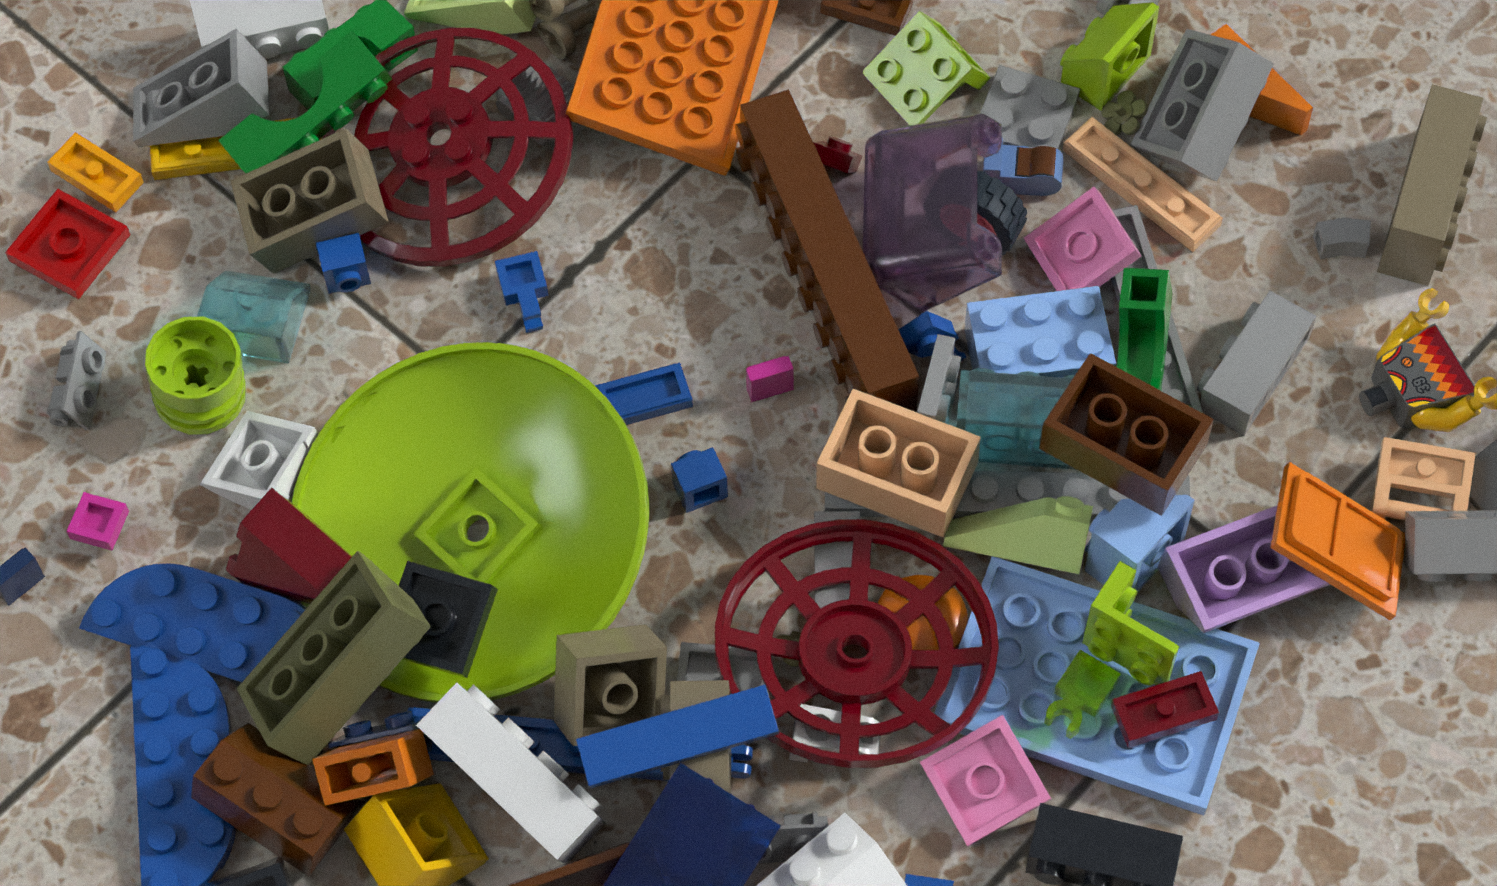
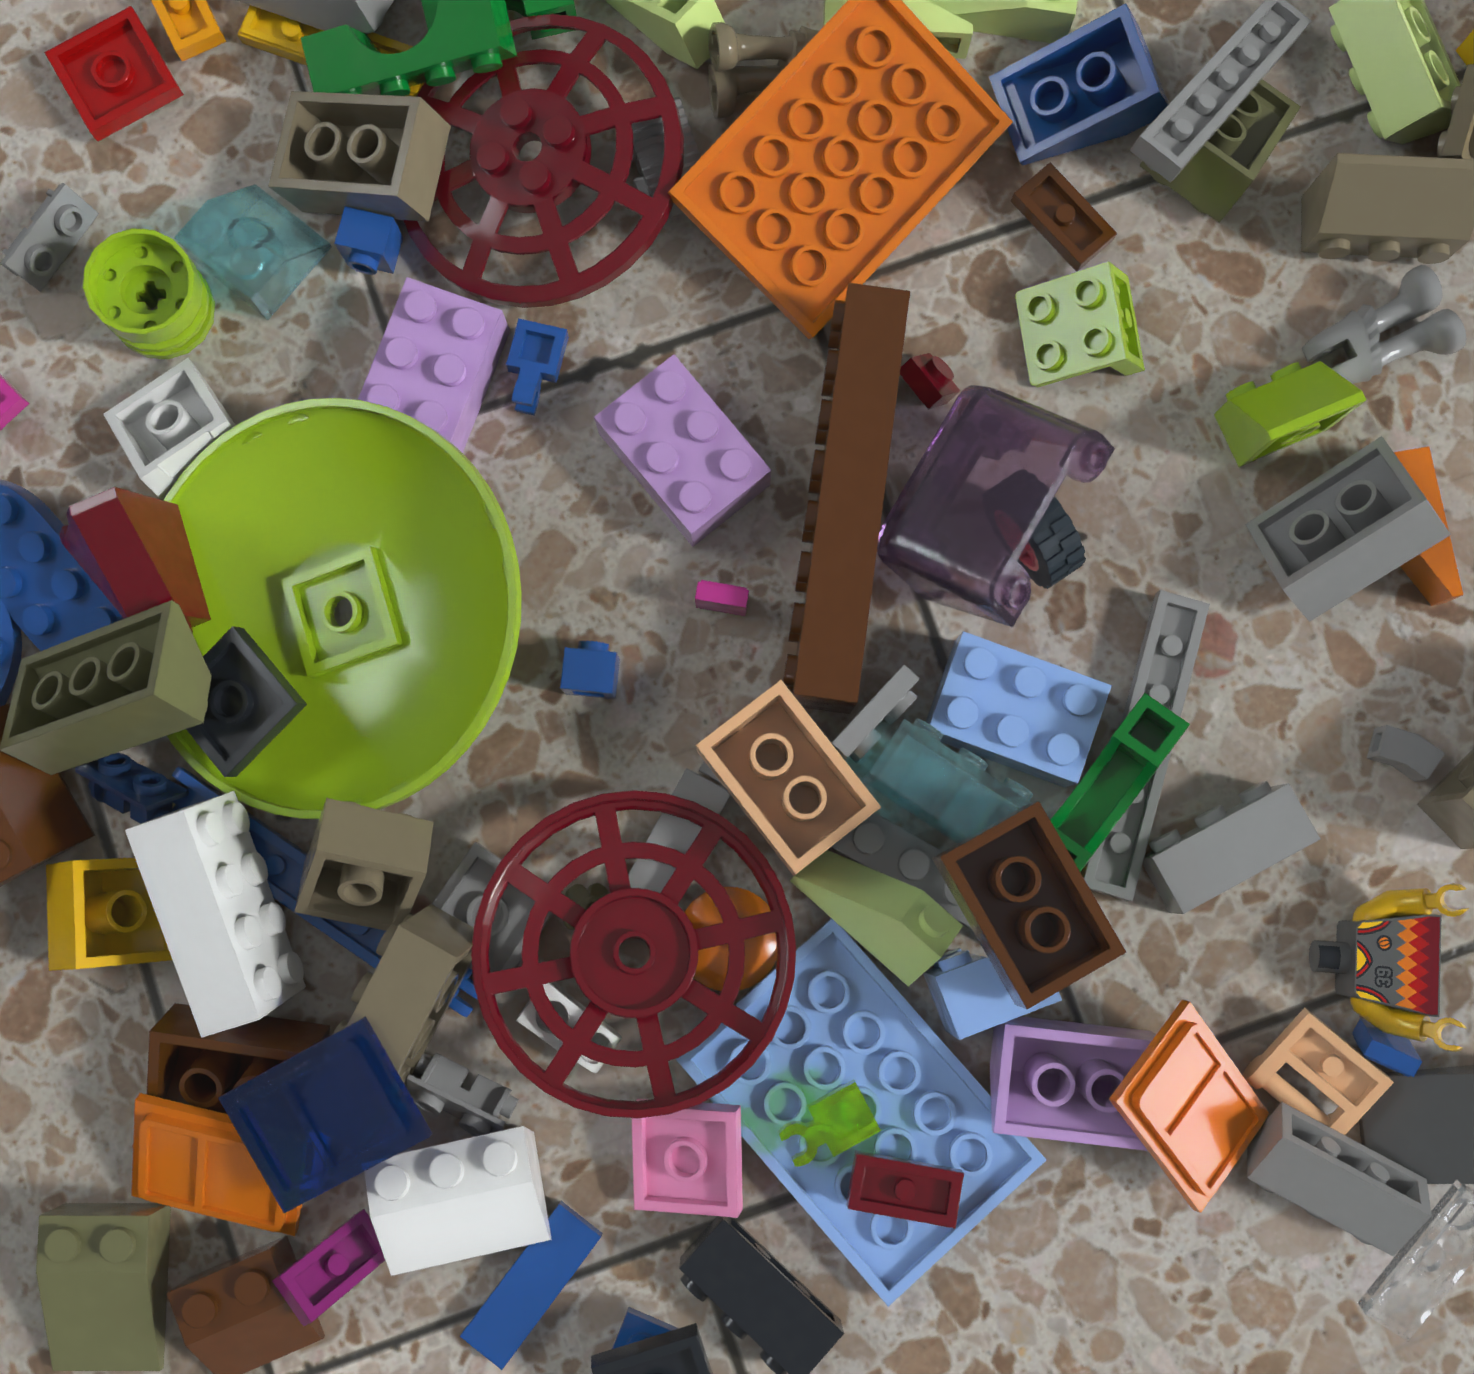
camera: 25 degrees right, 20 degrees up
(373, 767) = (83, 828): orange brick -> none
(445, 303) = (437, 359): none -> lavender brick
(649, 393) = (590, 545): blue tile -> none
(677, 736) = (372, 991): blue tile -> none
(678, 291) = (683, 450): none -> lavender brick
(922, 332) = (904, 647): blue plate -> none
(1027, 169) = (1118, 501): medium blue leg -> none
(1030, 108) = (1158, 432): light grey plate -> none
(1082, 244) = (1124, 623): bright pink plate -> none
(1118, 638) = (911, 1064): lime bracket -> none
(1124, 114) = (1258, 487): olive plant -> none
(1142, 184) = (1231, 576): light nougat tile -> none
(1460, 438) = (1386, 1049): none -> blue tile

